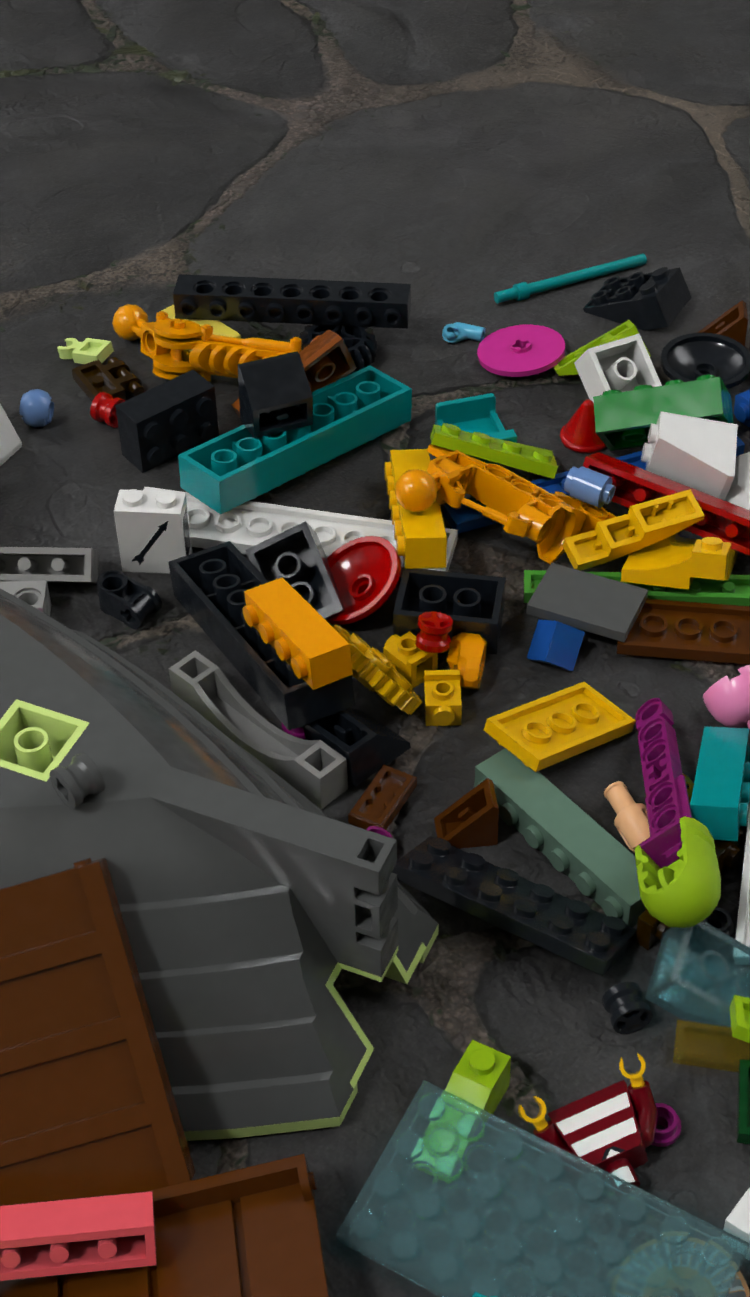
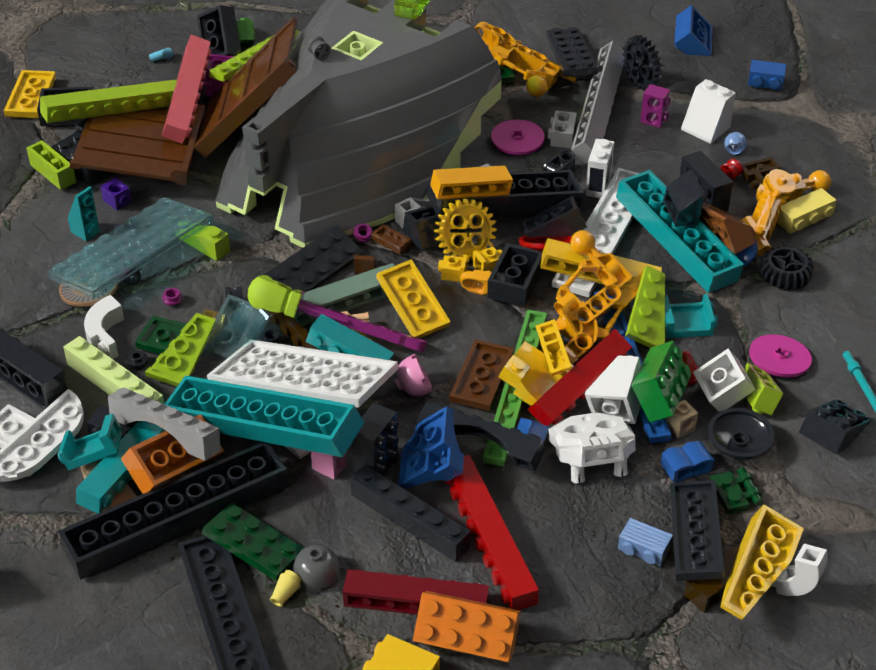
camera: 100 degrees right, 0 degrees up
(86, 351) = (795, 165): yellowish green plate -> none
(292, 301) = (815, 241): black brick -> none
(434, 632) = (488, 256): red wheel -> none
(461, 331) = (805, 329): medium azure arm -> none
(555, 644) = (483, 315): blue panel -> none
(587, 602) = (508, 329): dark grey tile -> none
(589, 486) = (594, 332): medium blue brick -> none
(606, 1126) = (171, 270): dark red torso -> none
(731, 323) = (785, 465): reddish brown slope -> none

